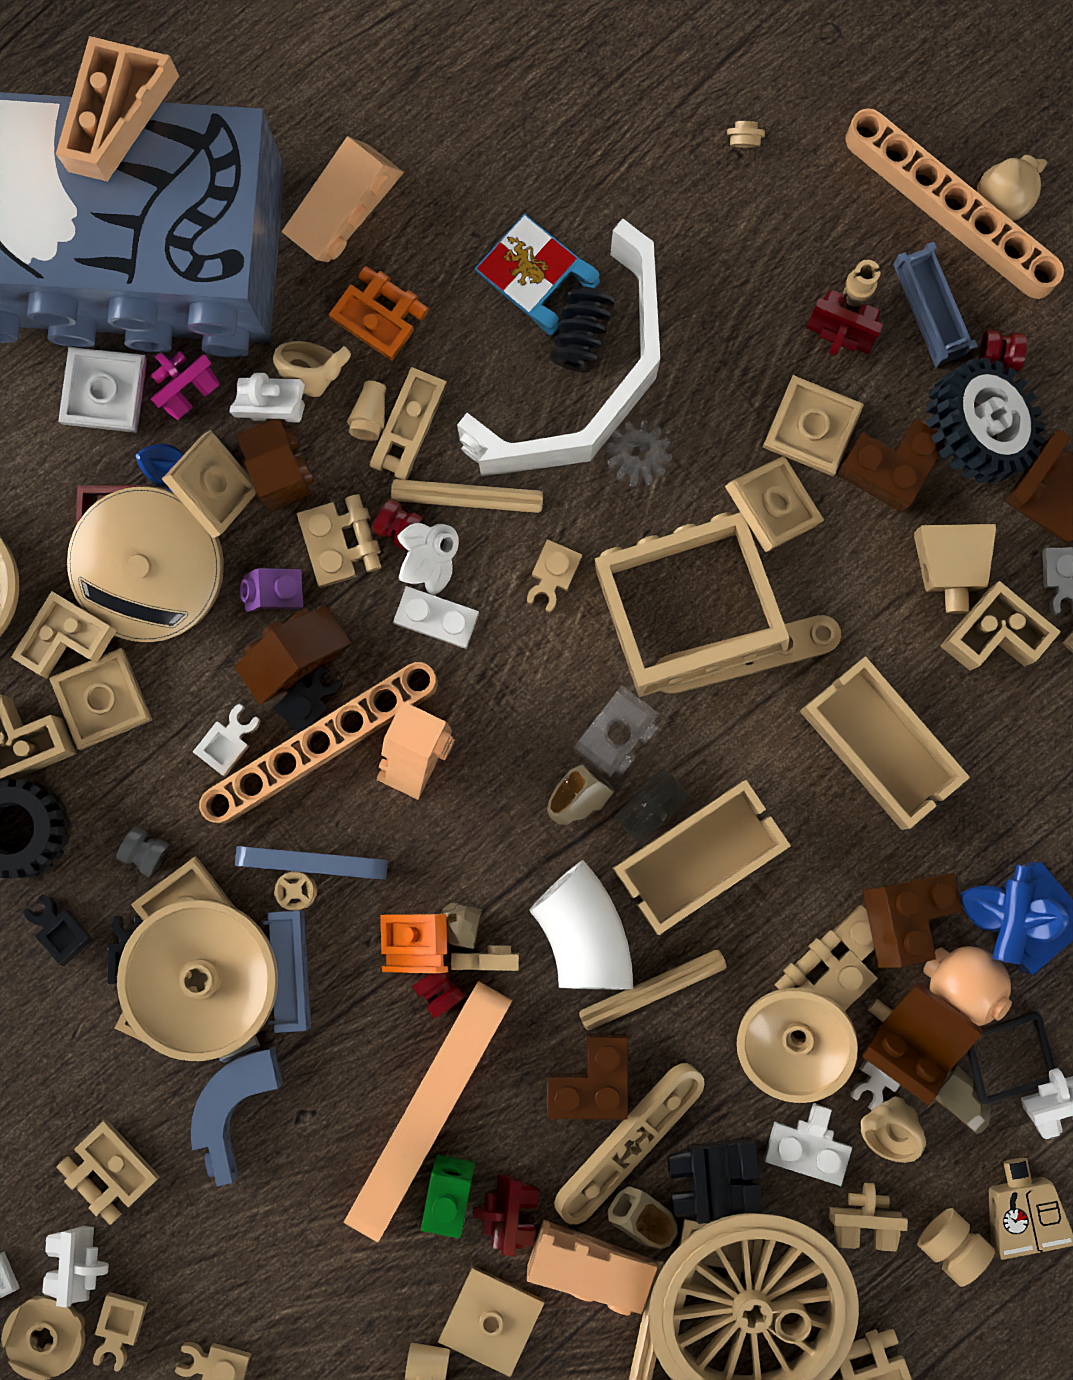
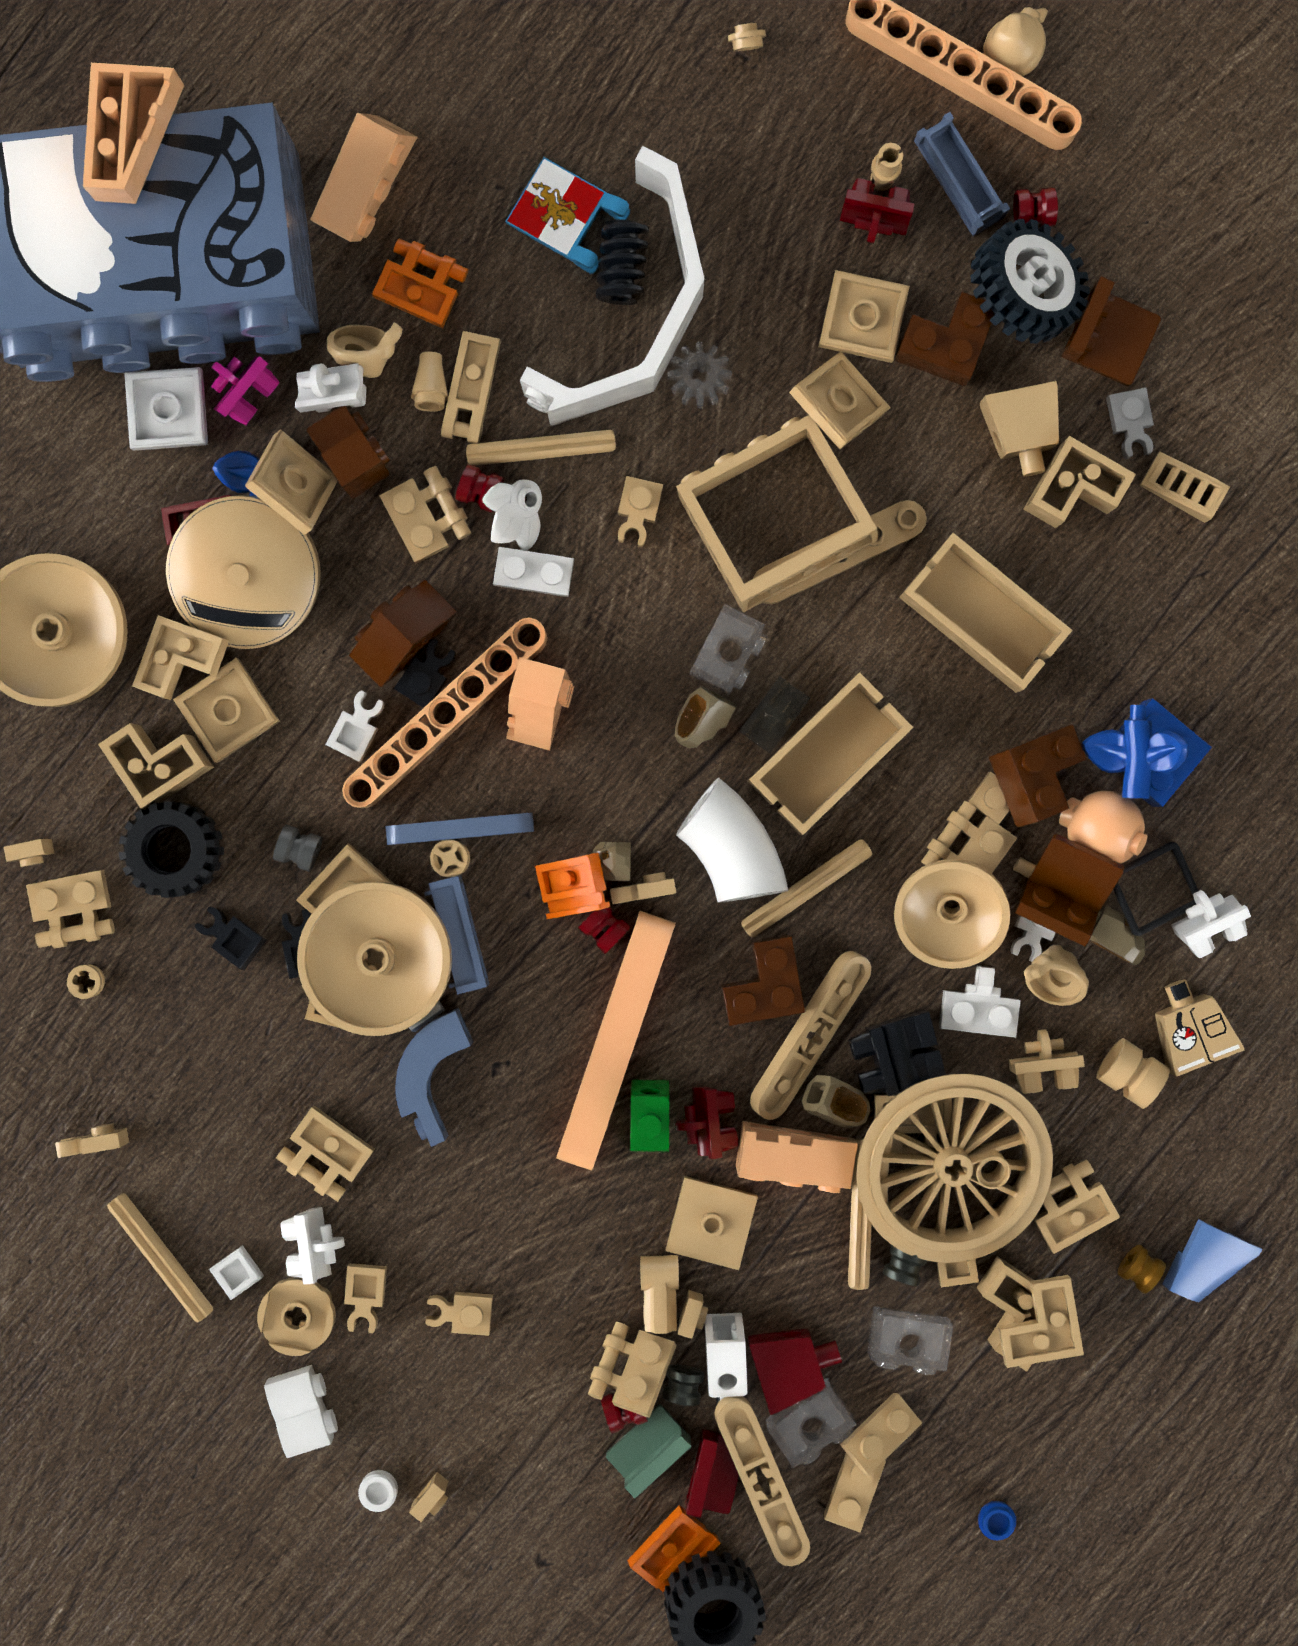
camera: 10 degrees left, 5 degrees up
(272, 589) = (370, 574): medium lavender bracket -> none

